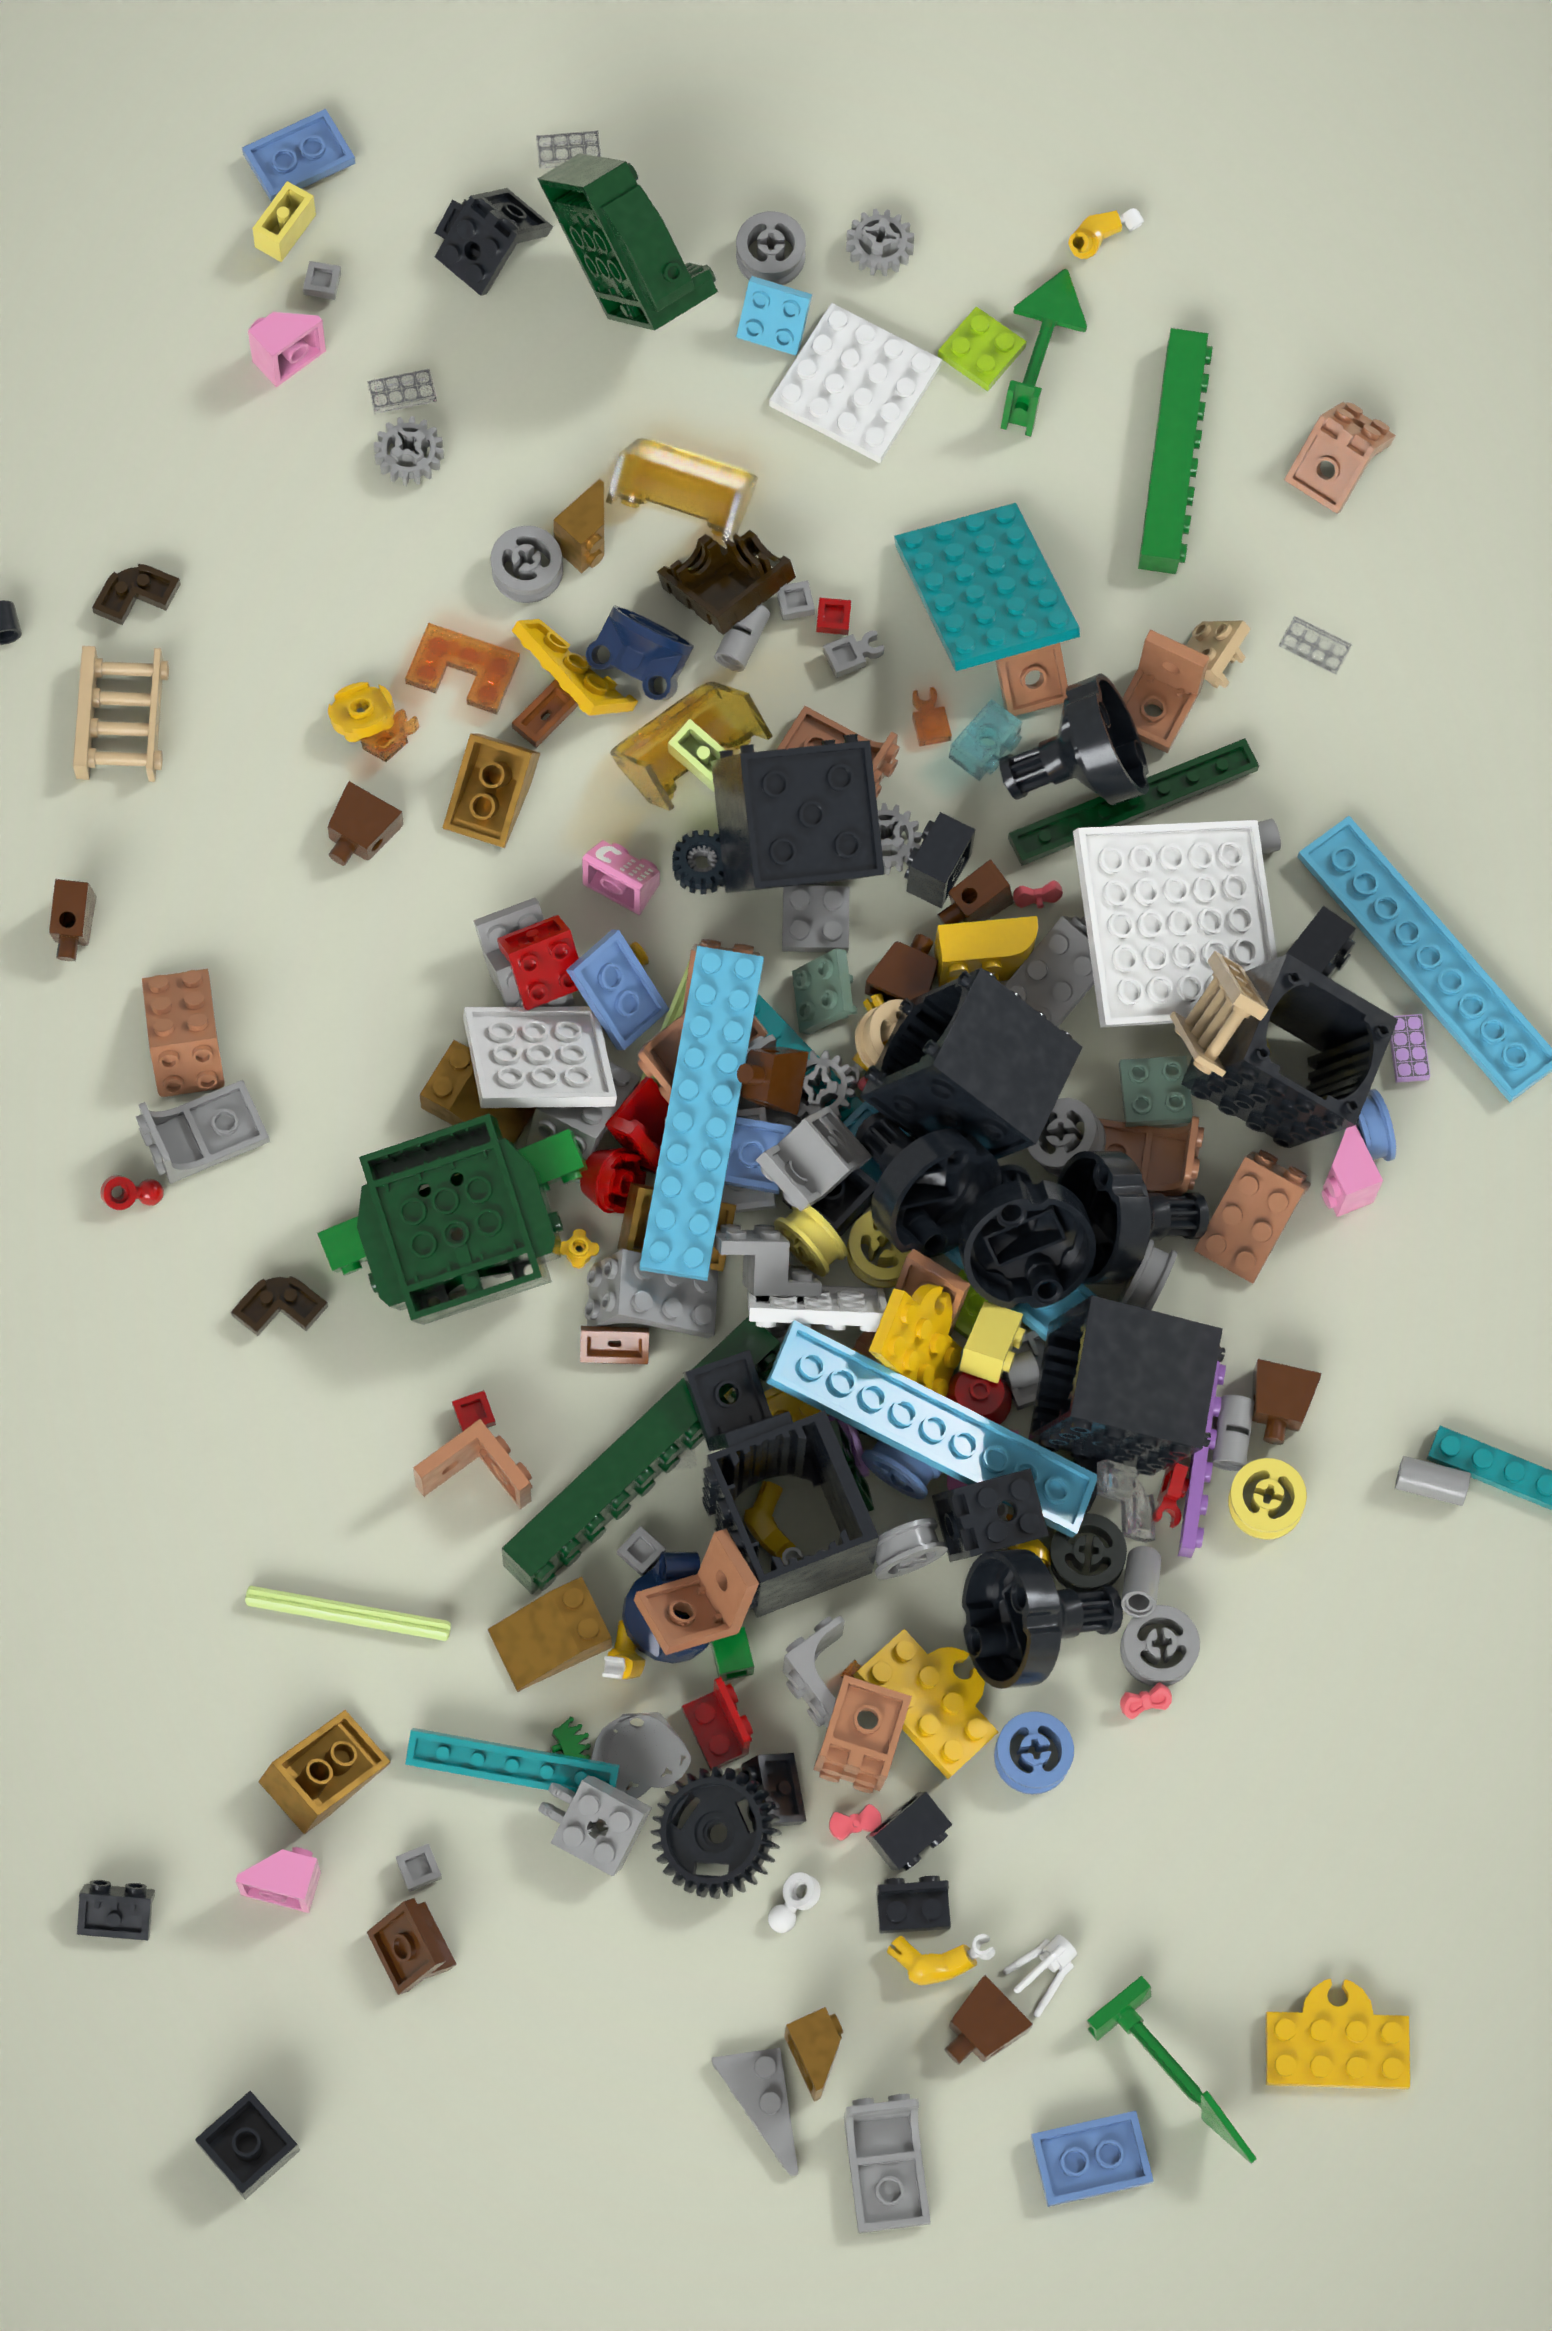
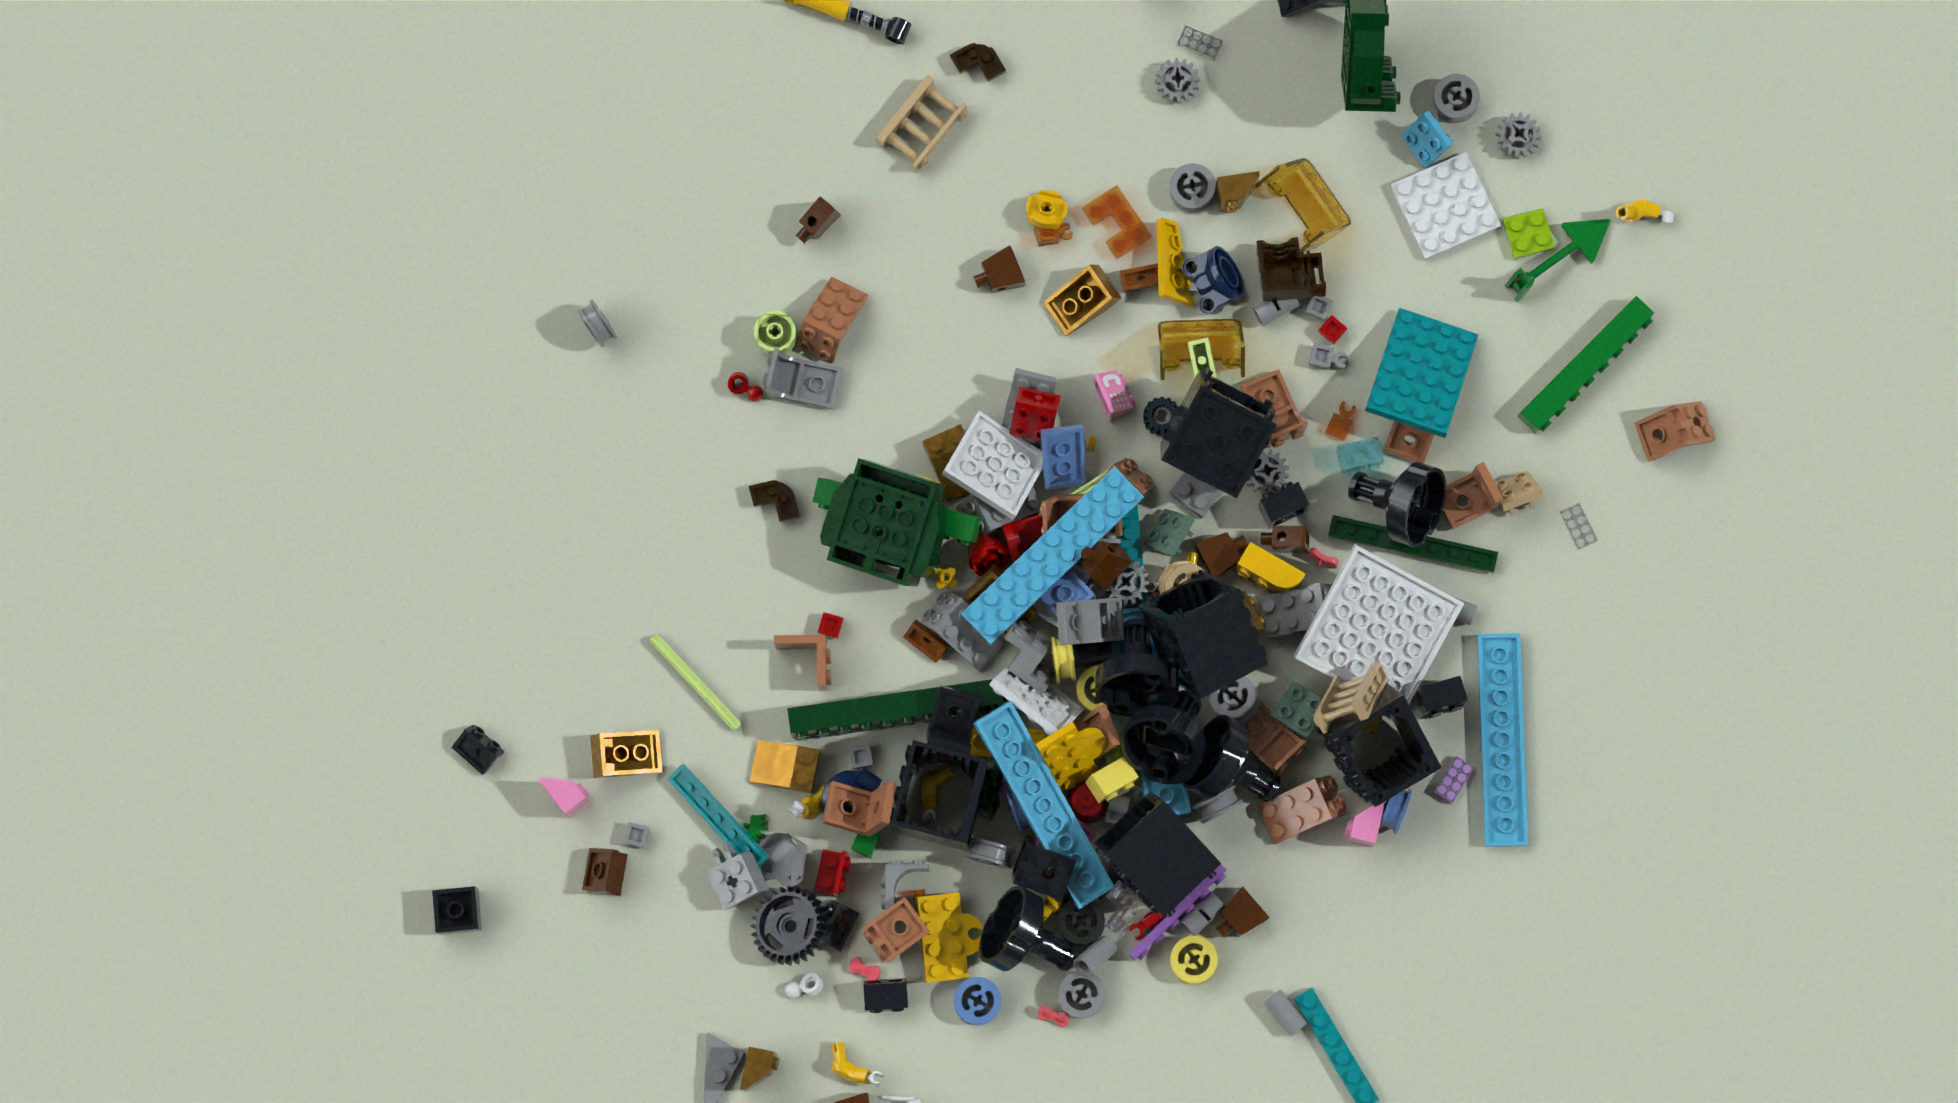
camera: 45 degrees right, 10 degrees up
(118, 1077) = (766, 326): none -> yellowish green brick
(913, 1905) = (861, 1032): black bracket -> none

